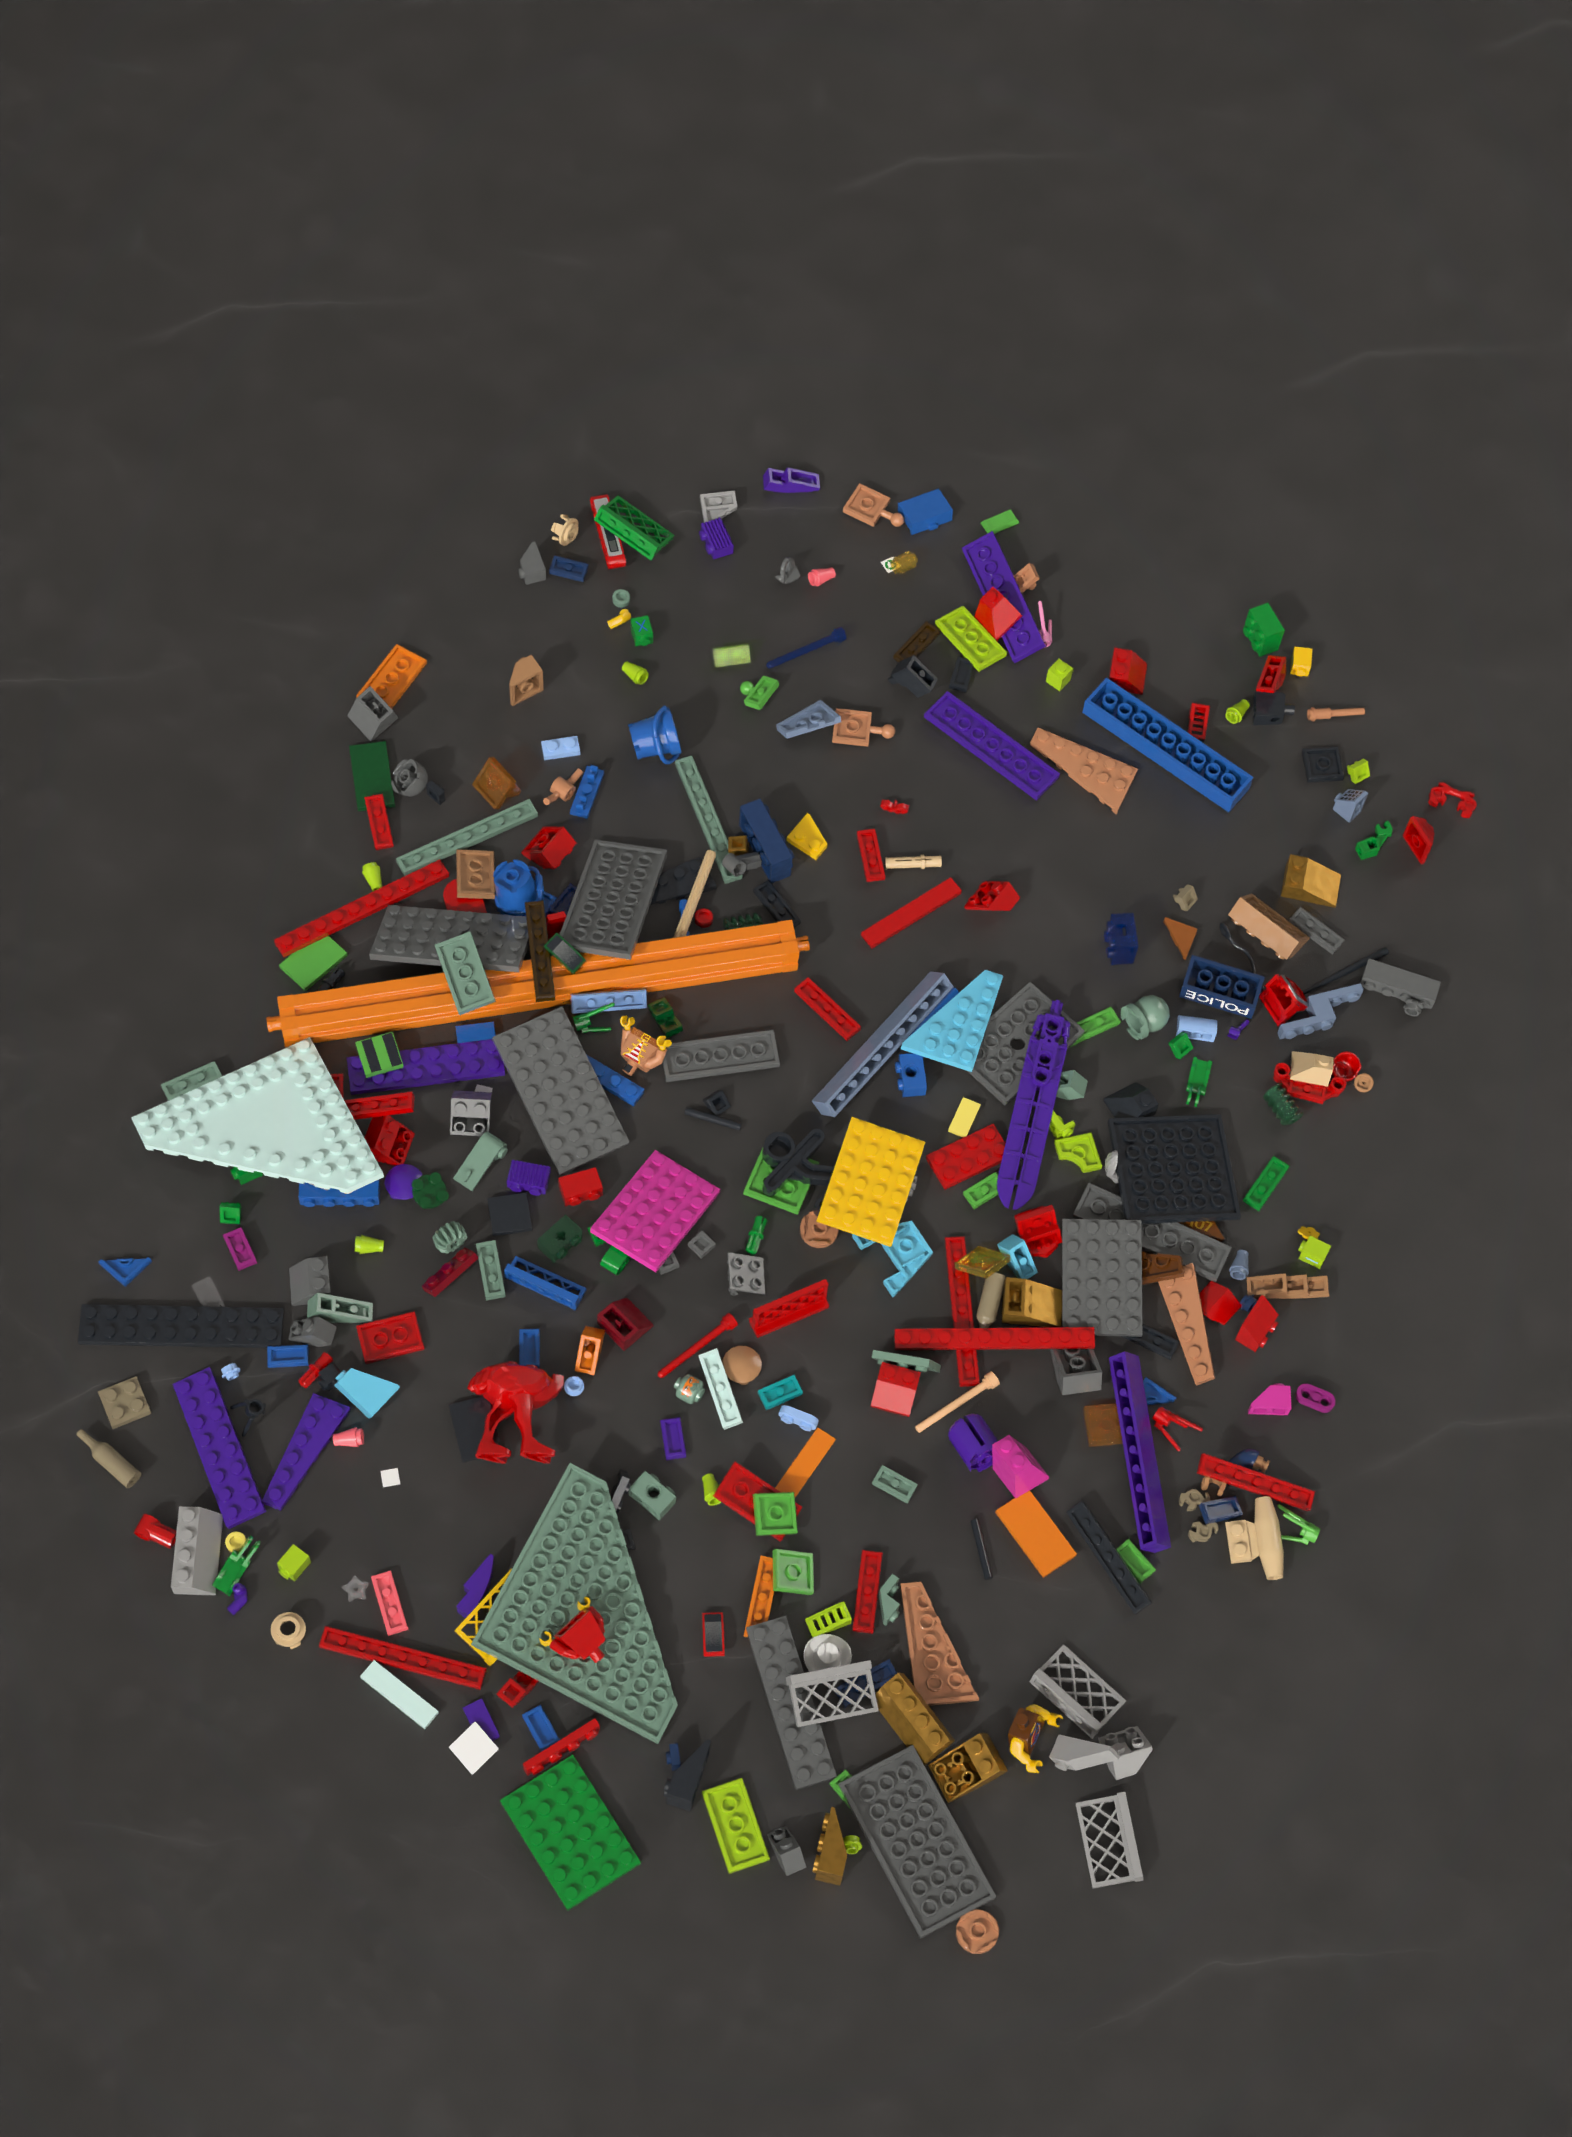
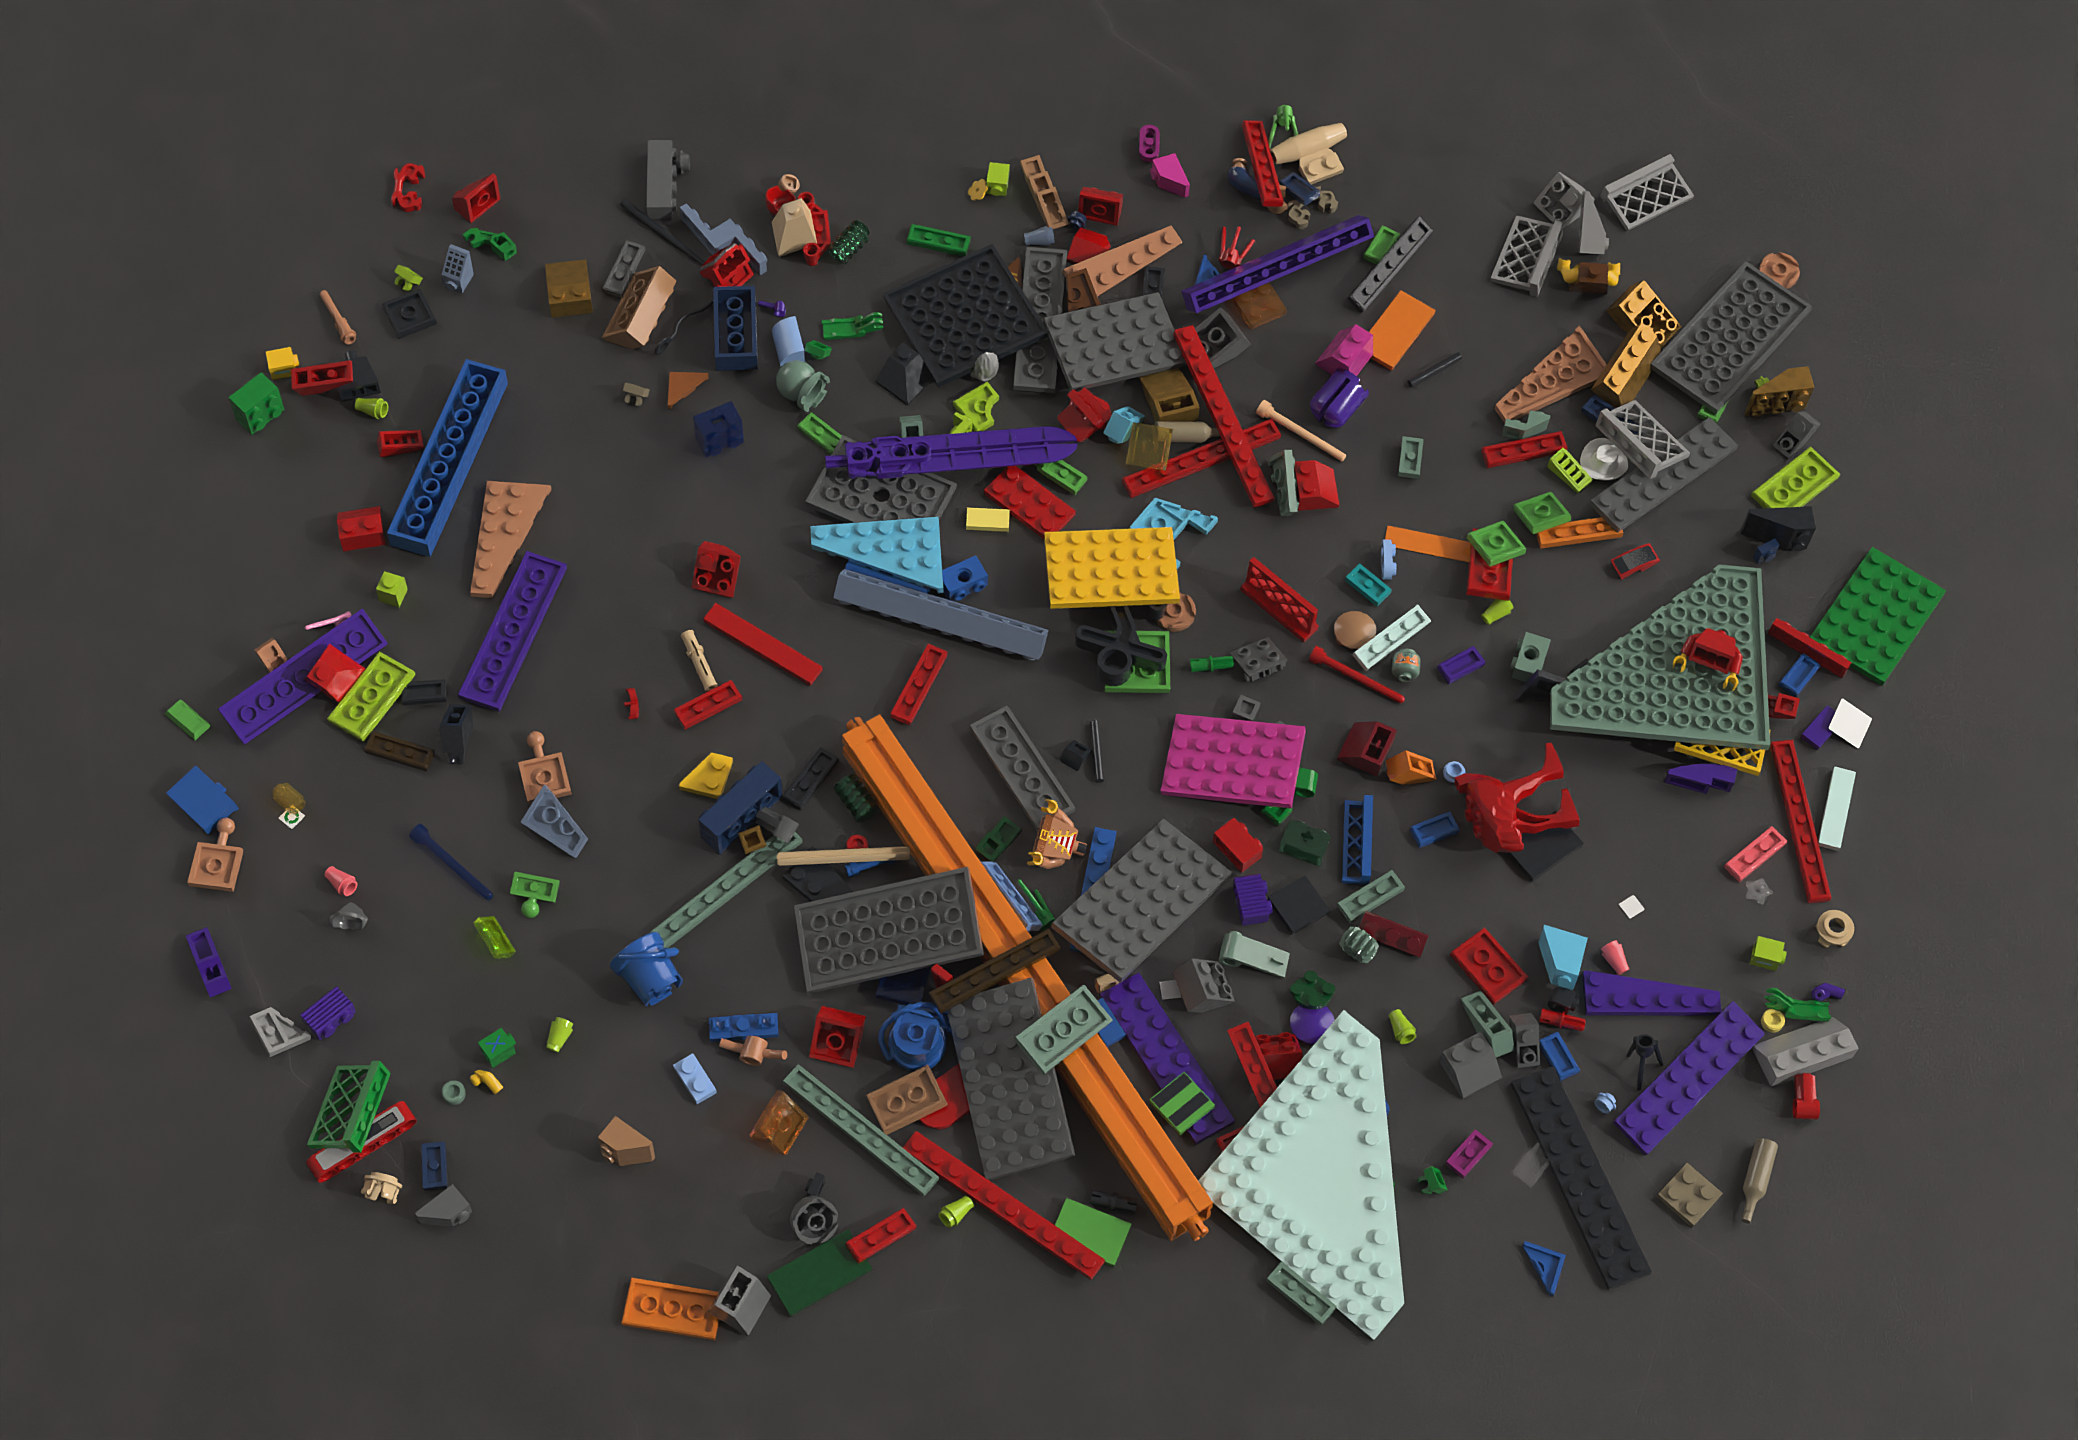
camera: 110 degrees left, 0 degrees up
(565, 953) = (990, 940): slope -> none

